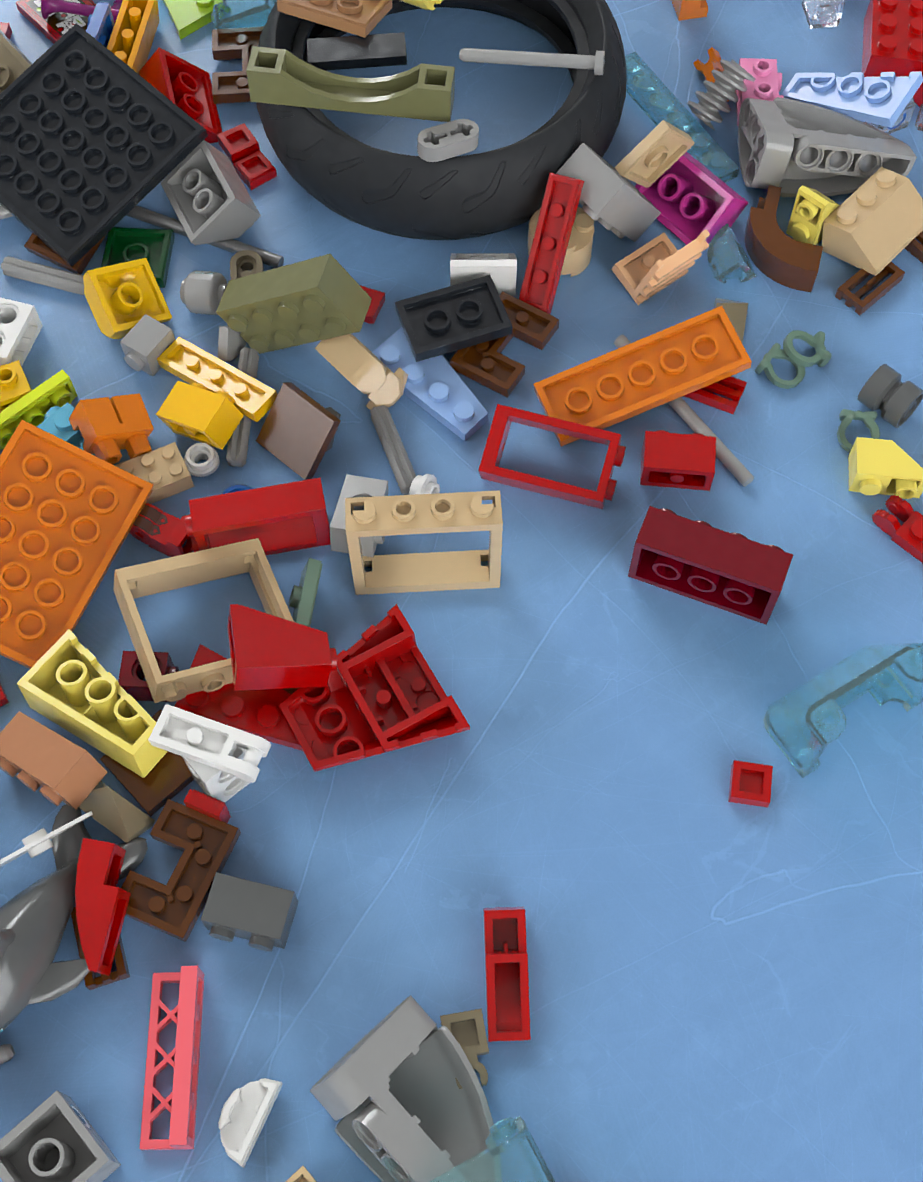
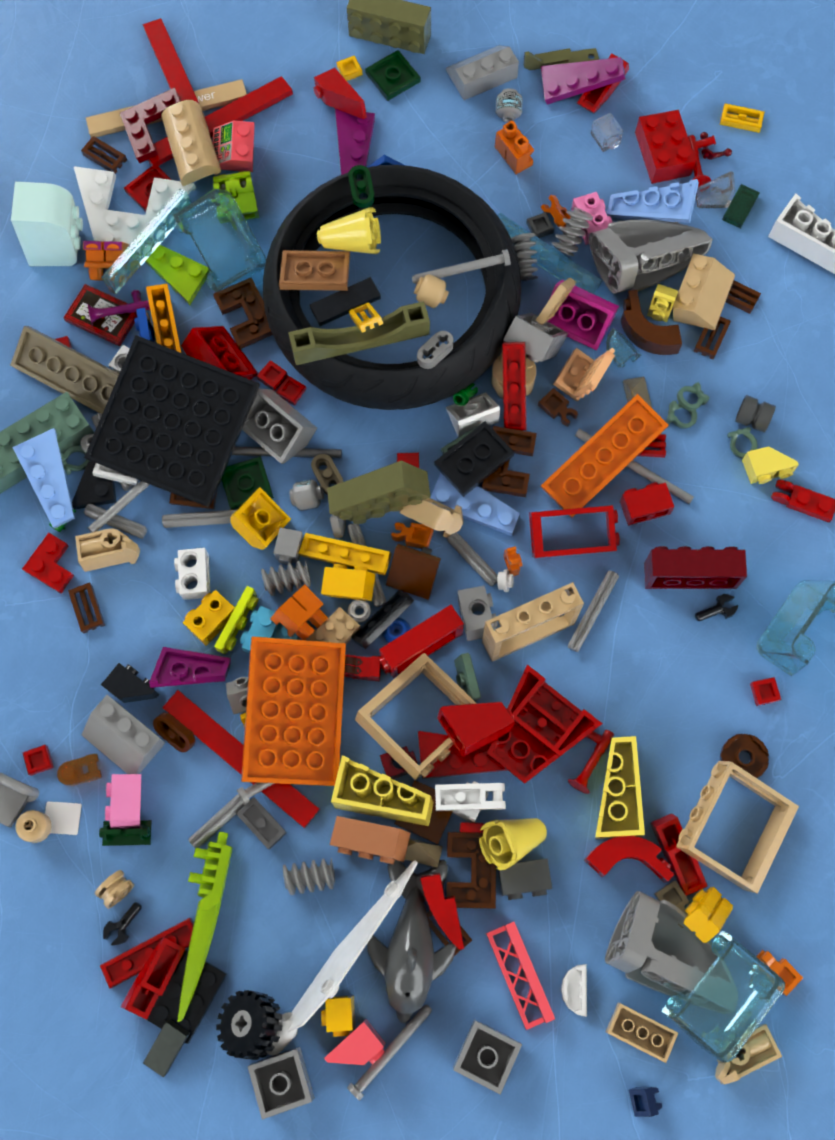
camera: 20 degrees left, 10 degrees up
(111, 382) = (286, 578): none -> light grey piece
(226, 479) = (382, 619): none -> black tile
(254, 841) = (510, 840): none -> light yellow cone
(326, 391) = (415, 536): none -> orange plate
(369, 68) = (376, 318): none -> yellow tile
(425, 927) = (629, 847): none -> red arch
(447, 468) = (512, 560): none -> orange plate
(451, 851) = (621, 798): none -> light yellow wedge
(464, 762) = (603, 741): none -> red piece
(476, 69) = (431, 290): none -> tan head
(479, 241) = (462, 397): none -> green pin
(505, 1077) = (707, 913): none -> yellow brick
(534, 577) = (593, 611): none -> light grey axle
(605, 296) = (556, 405): none -> reddish brown plate
(641, 99) = (522, 247): none -> light grey piece
(661, 1008) = (769, 840): none -> tan window
(669, 890) = (751, 745): none -> reddish brown tile
(683, 83) = (540, 225): none -> dark grey tile
(727, 640) = (718, 609): none -> black bar

